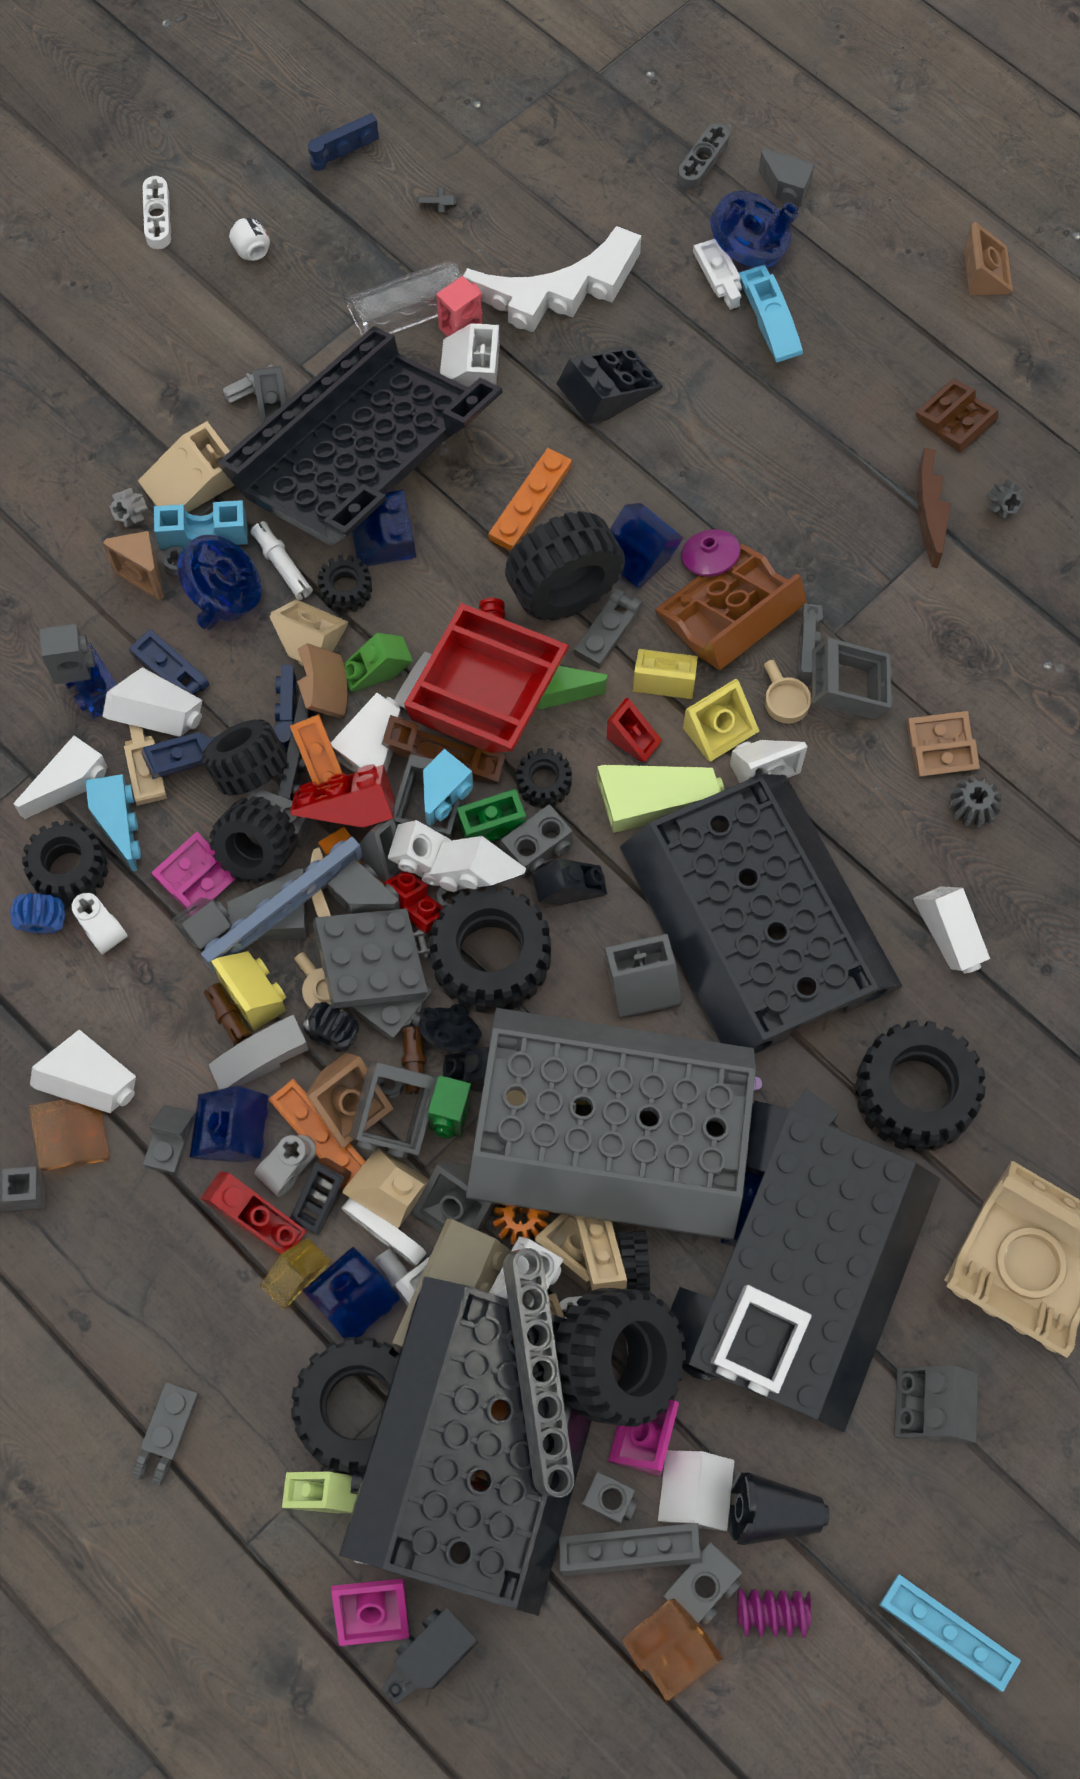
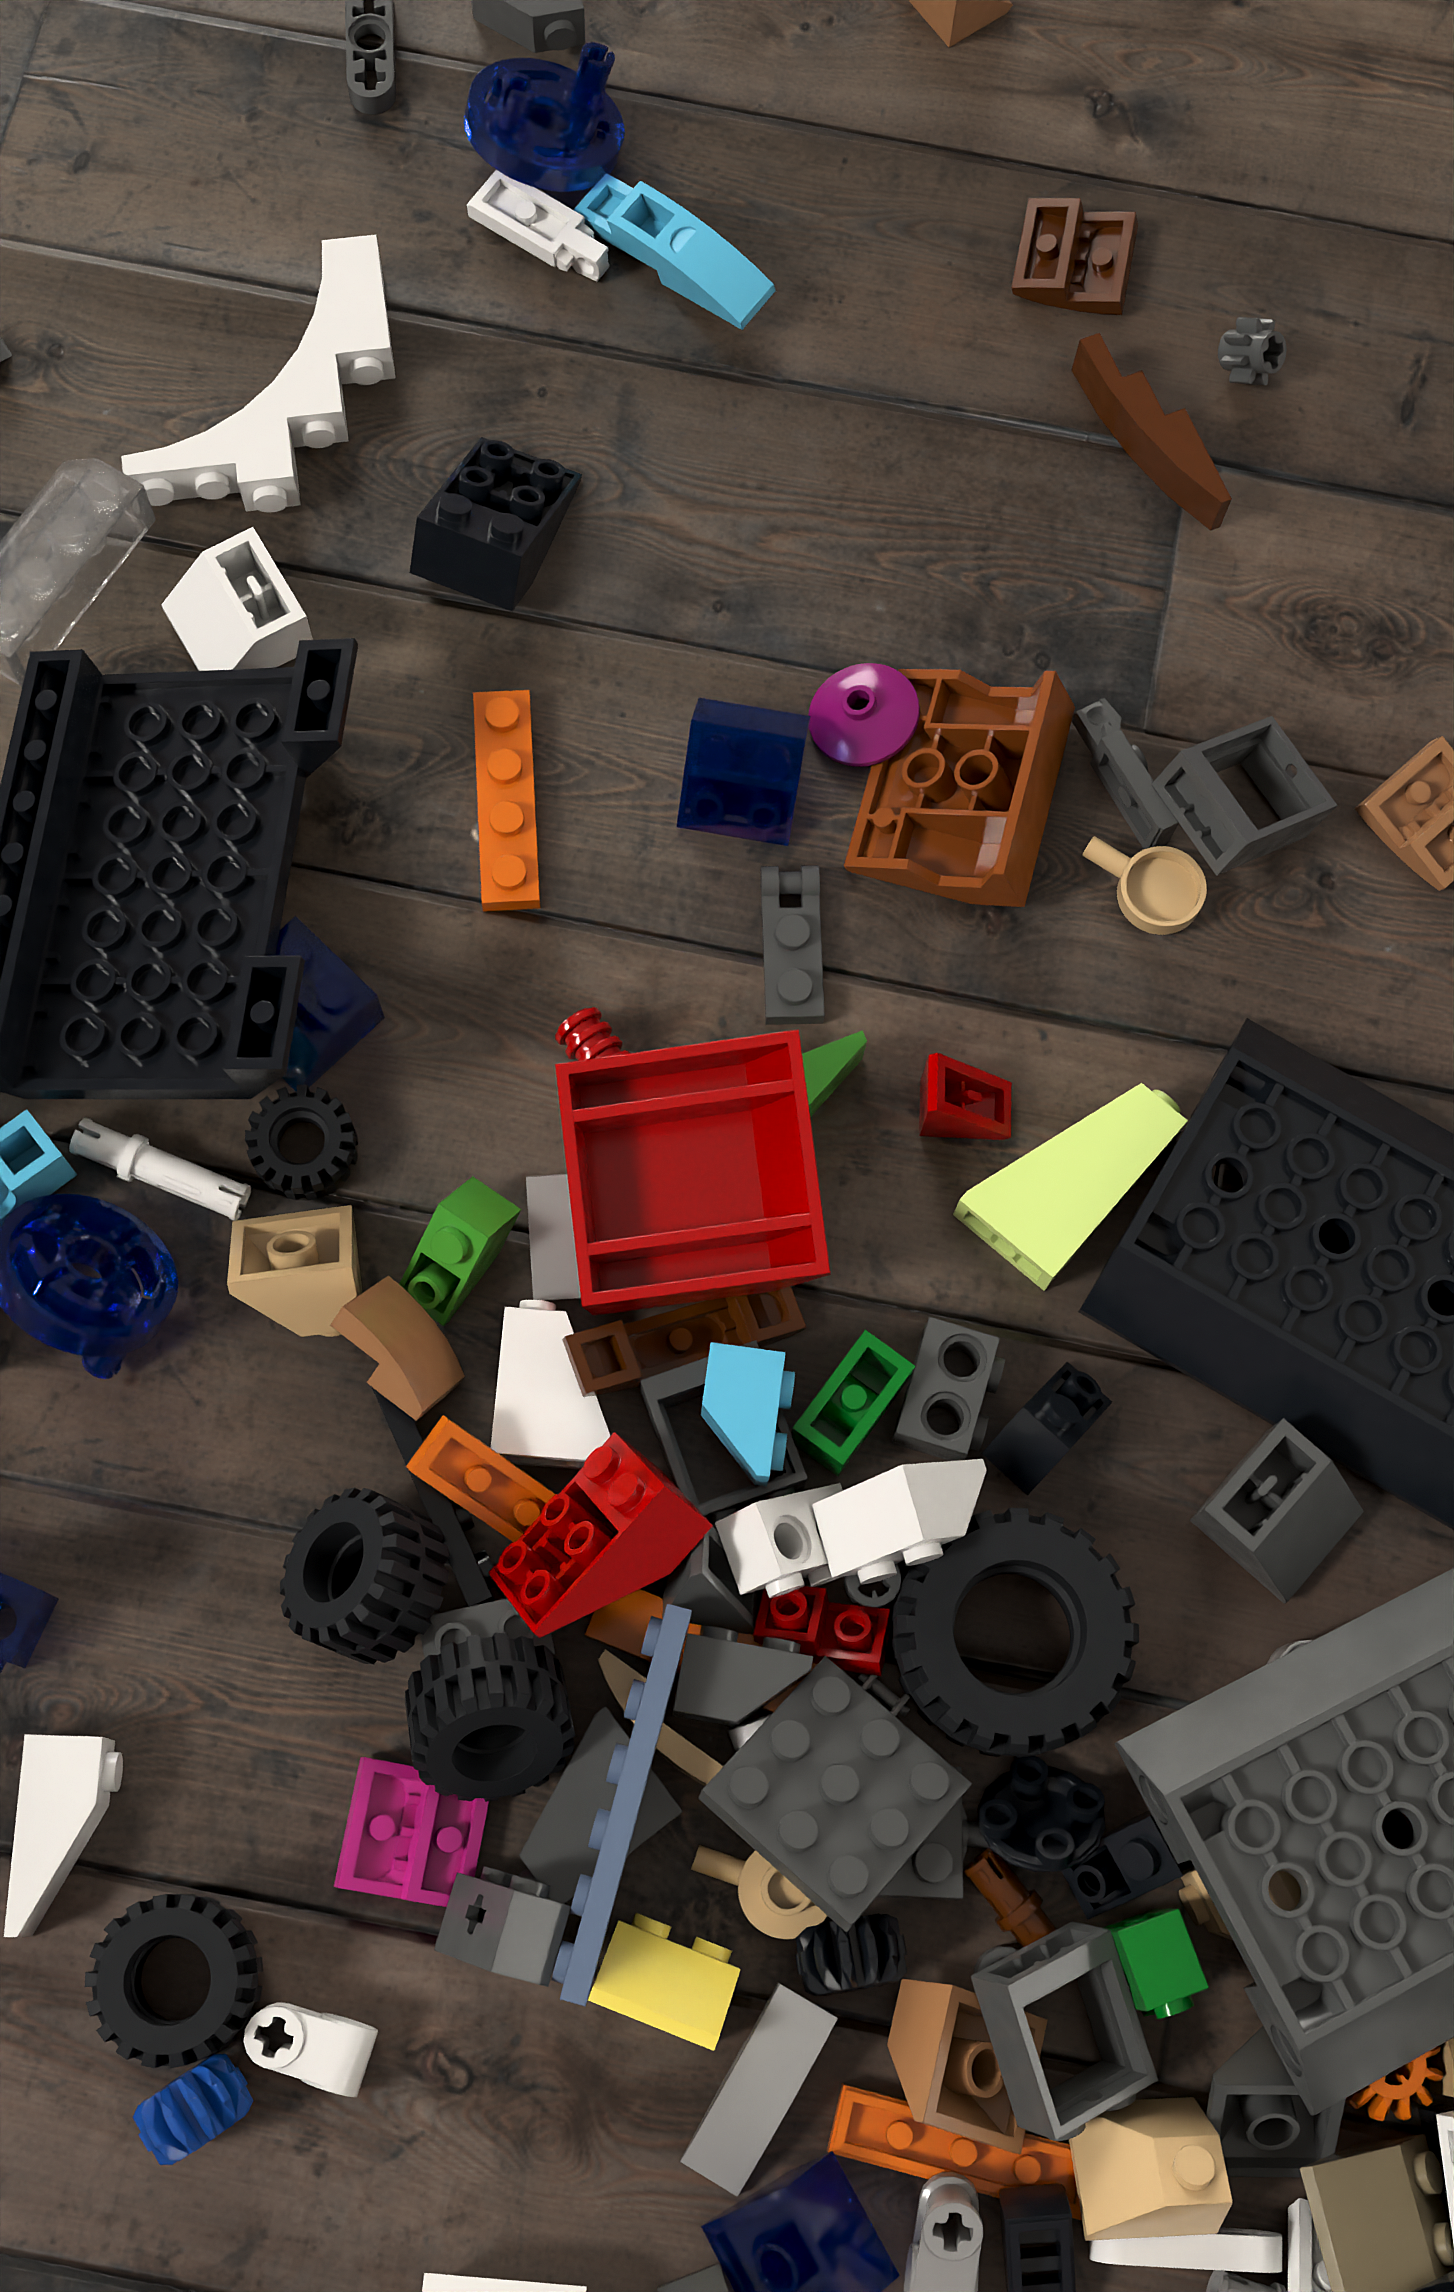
camera: 40 degrees left, 5 degrees up
(110, 806) = (185, 1822): medium azure slope -> none
(144, 787) = (184, 1700): tan hinge -> none
(153, 704) = (126, 1581): white slope -> none
(167, 663) = (95, 1487): dark blue plate -> none
(175, 754) = (235, 1643): dark blue hinge -> none
(227, 1013) = (652, 2050): reddish brown pin -> none
(286, 709) = (362, 1435): dark blue hinge -> none
(458, 306) = (159, 534): coral brick -> none
(544, 794) = (893, 1240): black tyre -> none
(564, 565) = (674, 887): black tyre -> none
(665, 674) = (940, 963): light yellow slope -> none
(720, 721) = (1089, 995): light yellow slope -> none
(767, 758) = (1205, 1018): white slope -> none

